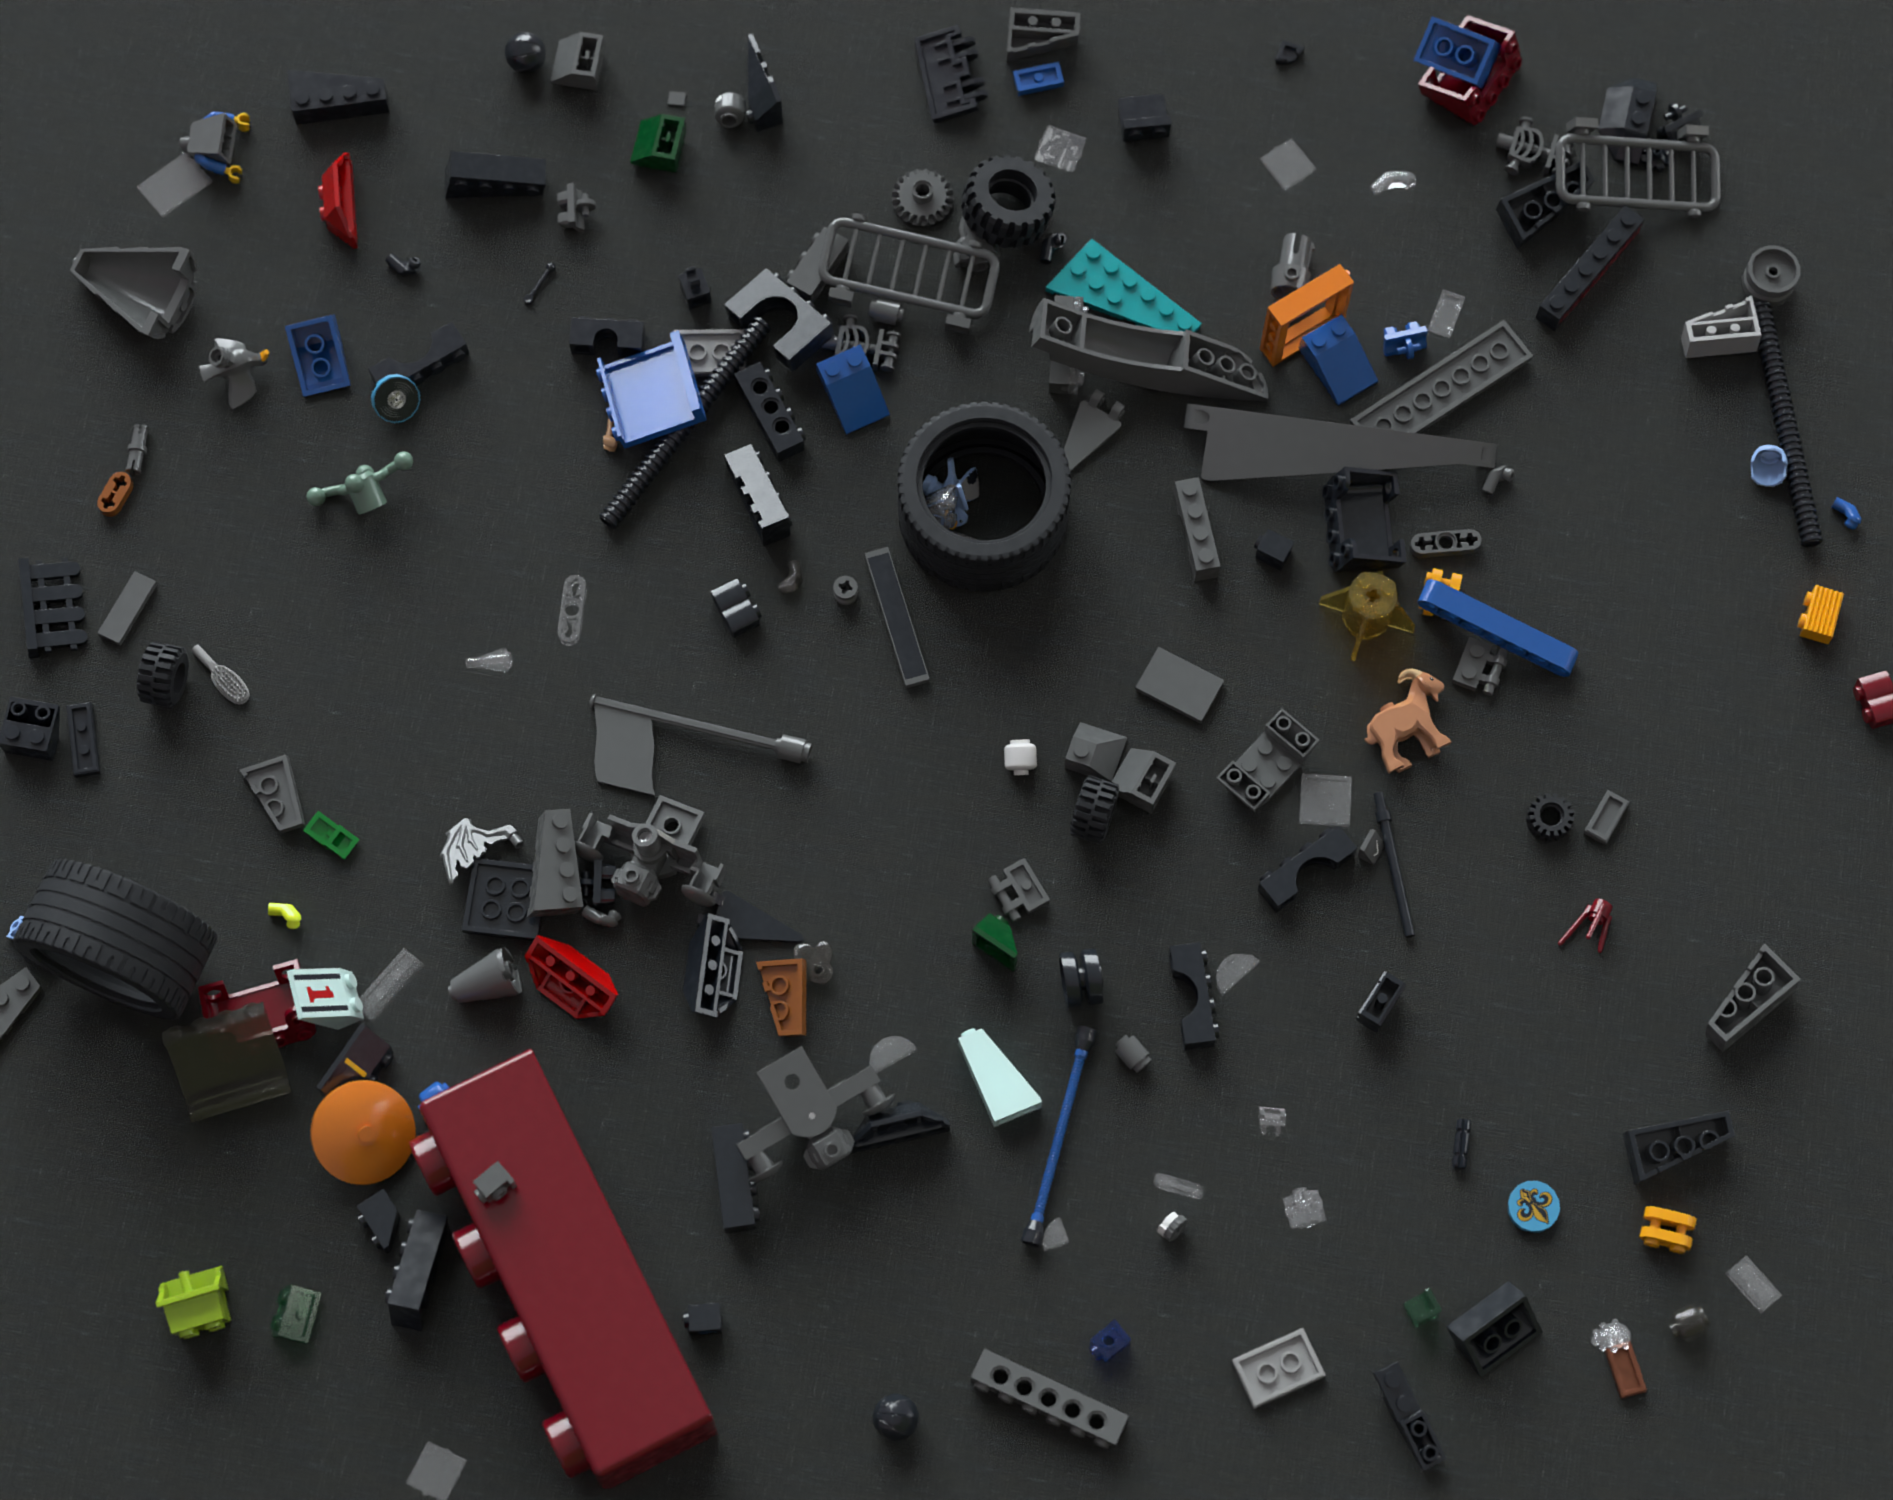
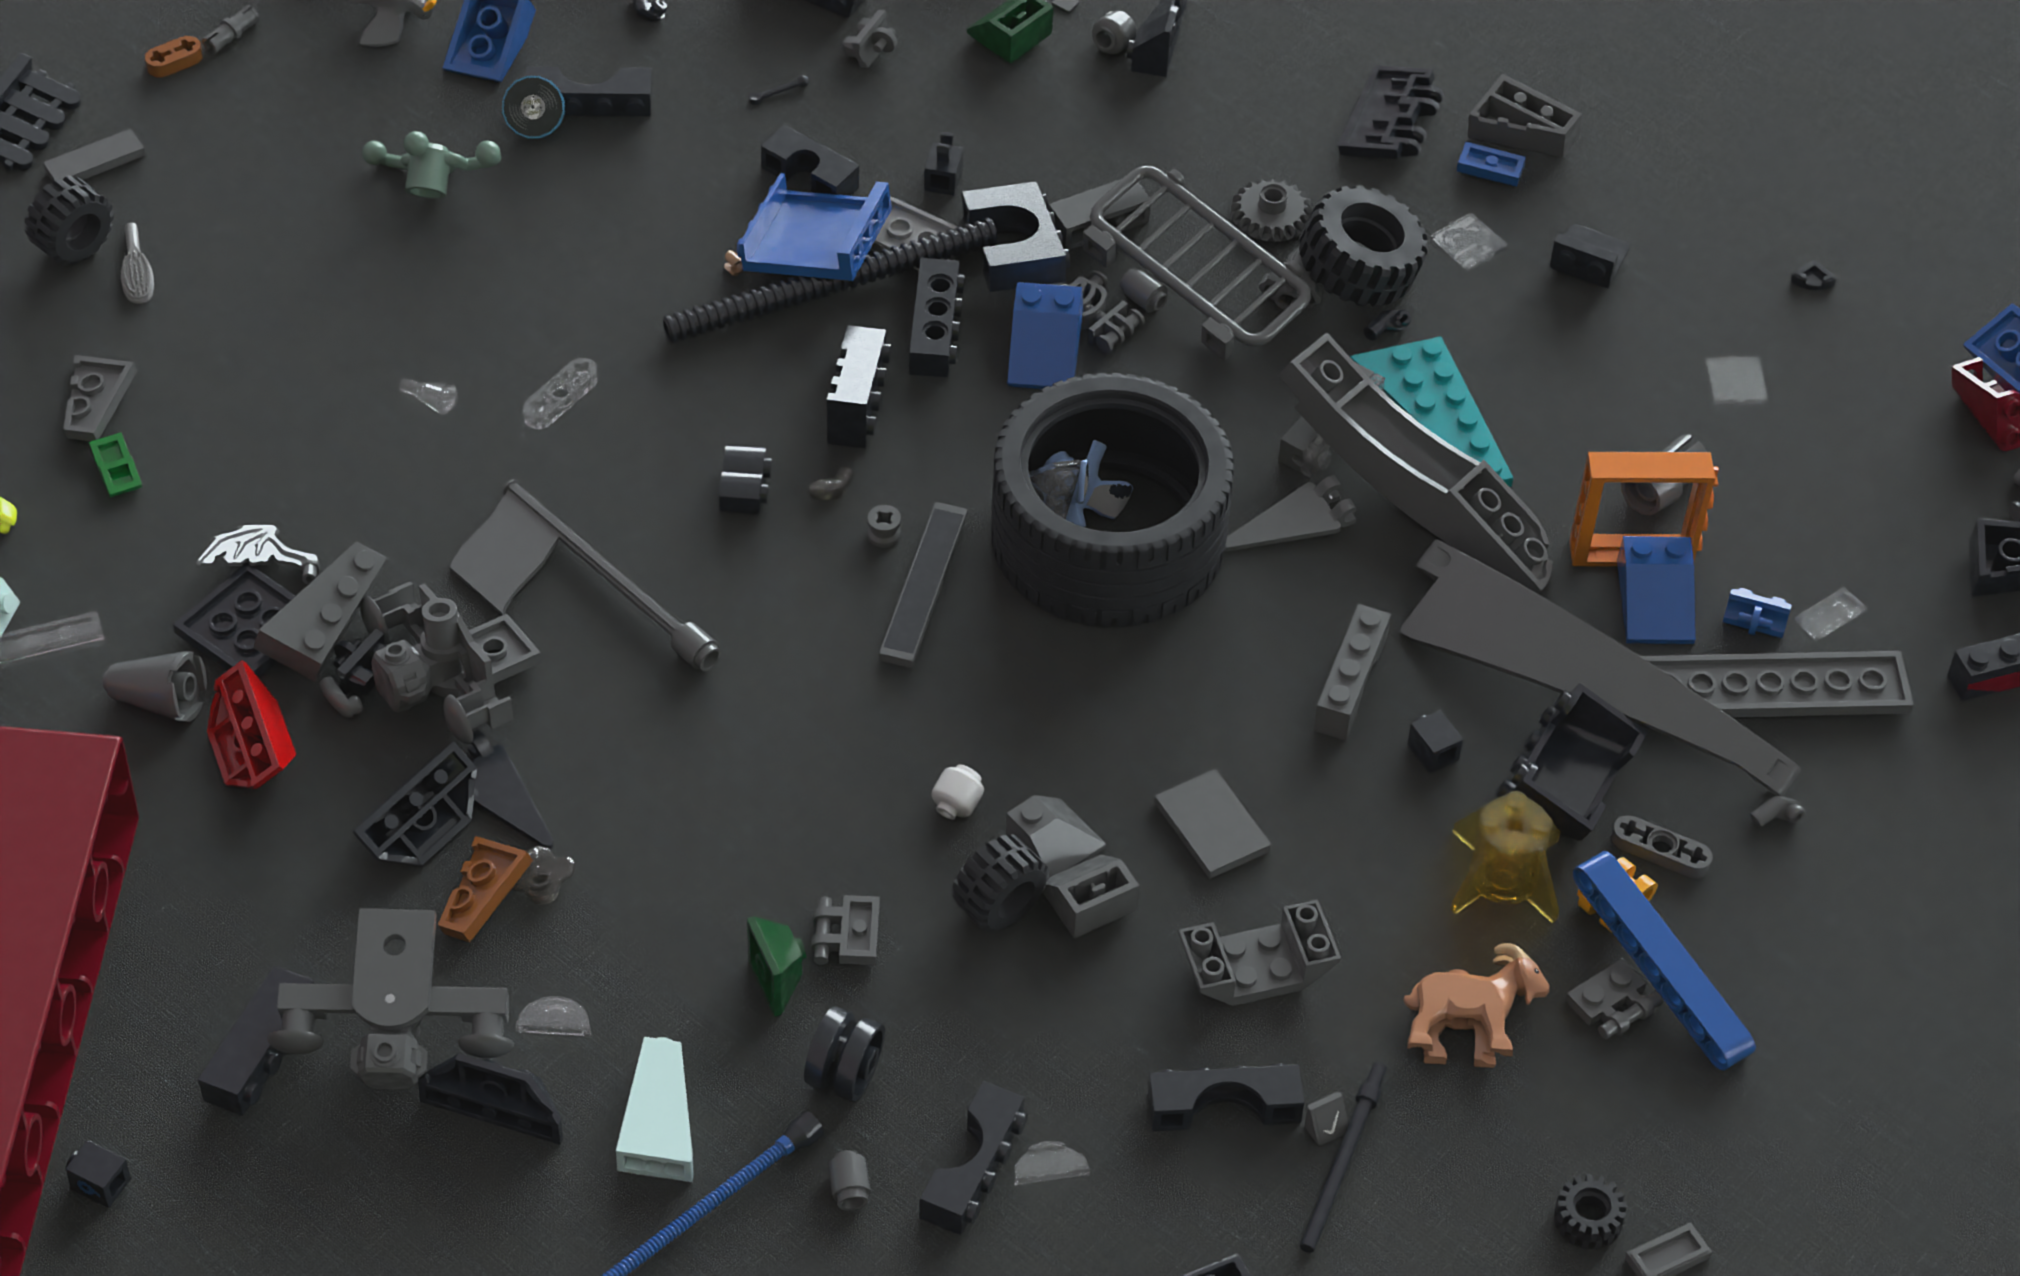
camera: 30 degrees right, 20 degrees down
(1325, 800) = (1306, 1038): clear tile -> none
(1393, 179) = (1858, 451): clear arm -> none

